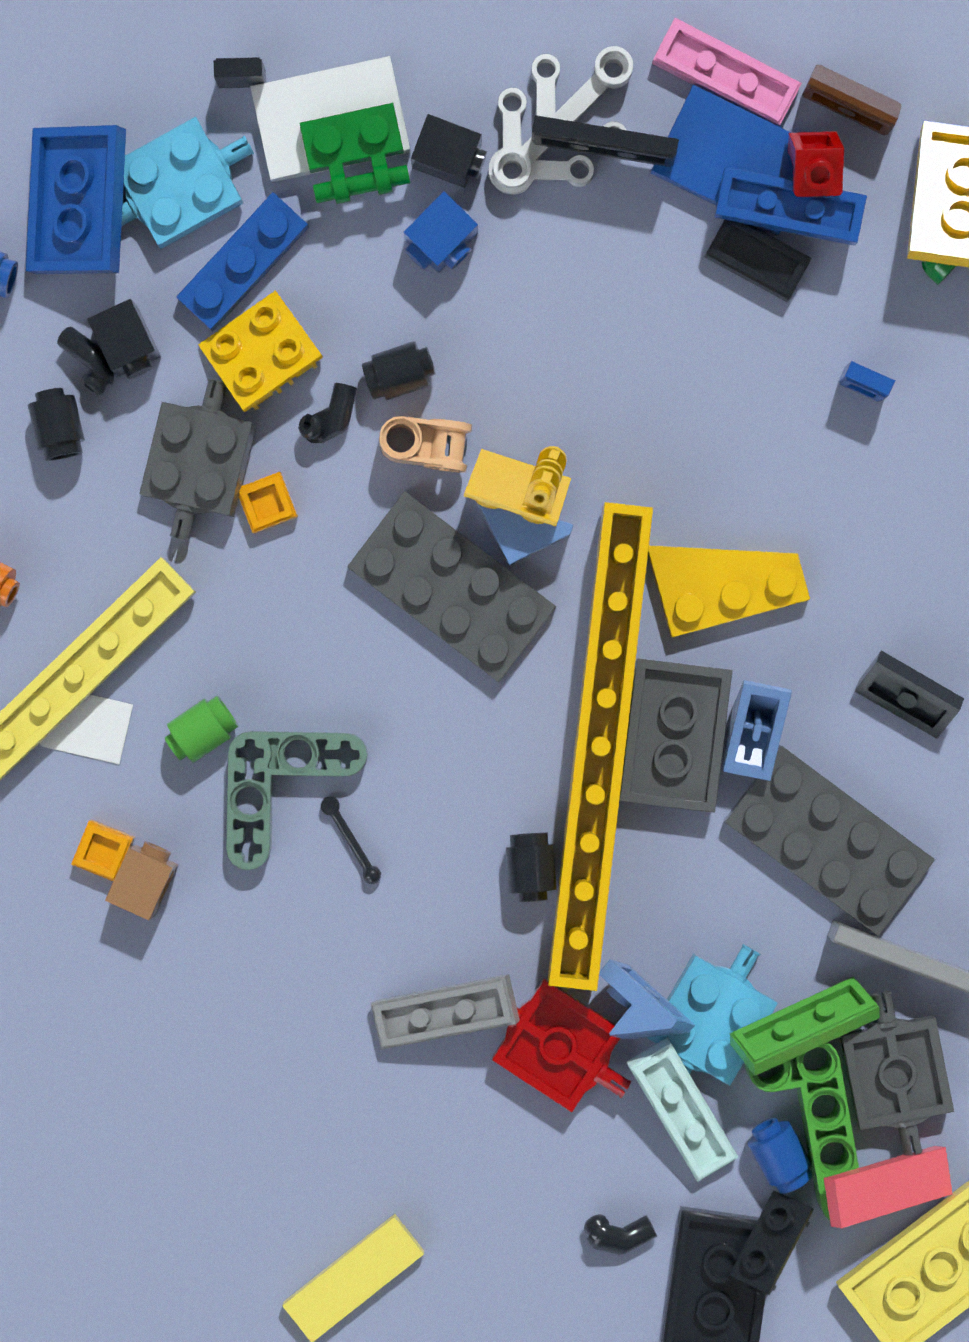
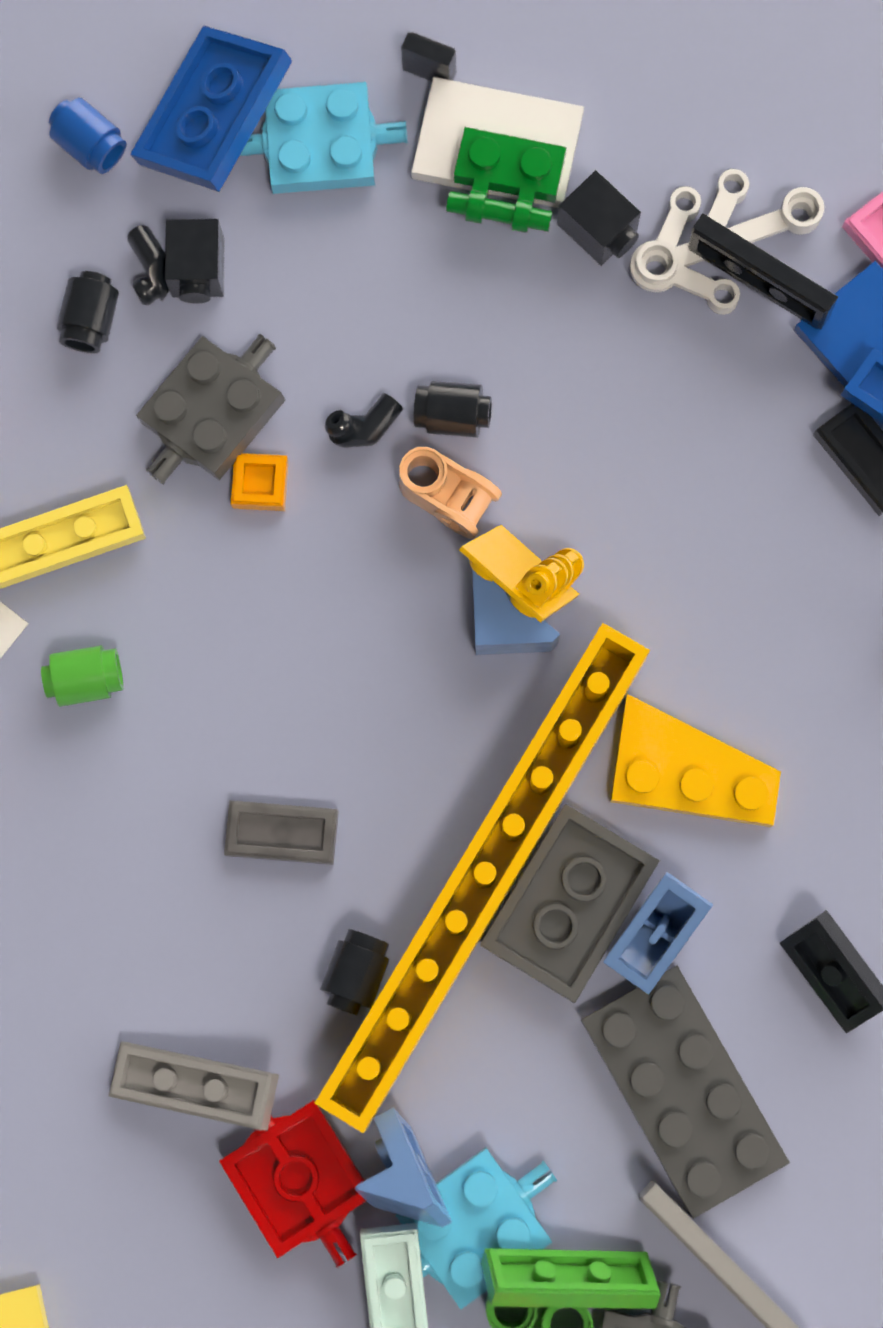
camera: 30 degrees right, 10 degrees down
(242, 261) = (347, 239): blue plate -> none
(260, 351) = (323, 332): yellow hinge -> none
(272, 764) = (139, 745): sand green beam -> none
(331, 806) = (179, 817): black hinge -> none
(419, 781) = (281, 832): none -> flat silver tile
(440, 235) = (555, 294): blue brick -> none
(451, 586) = (407, 648): dark grey plate -> none

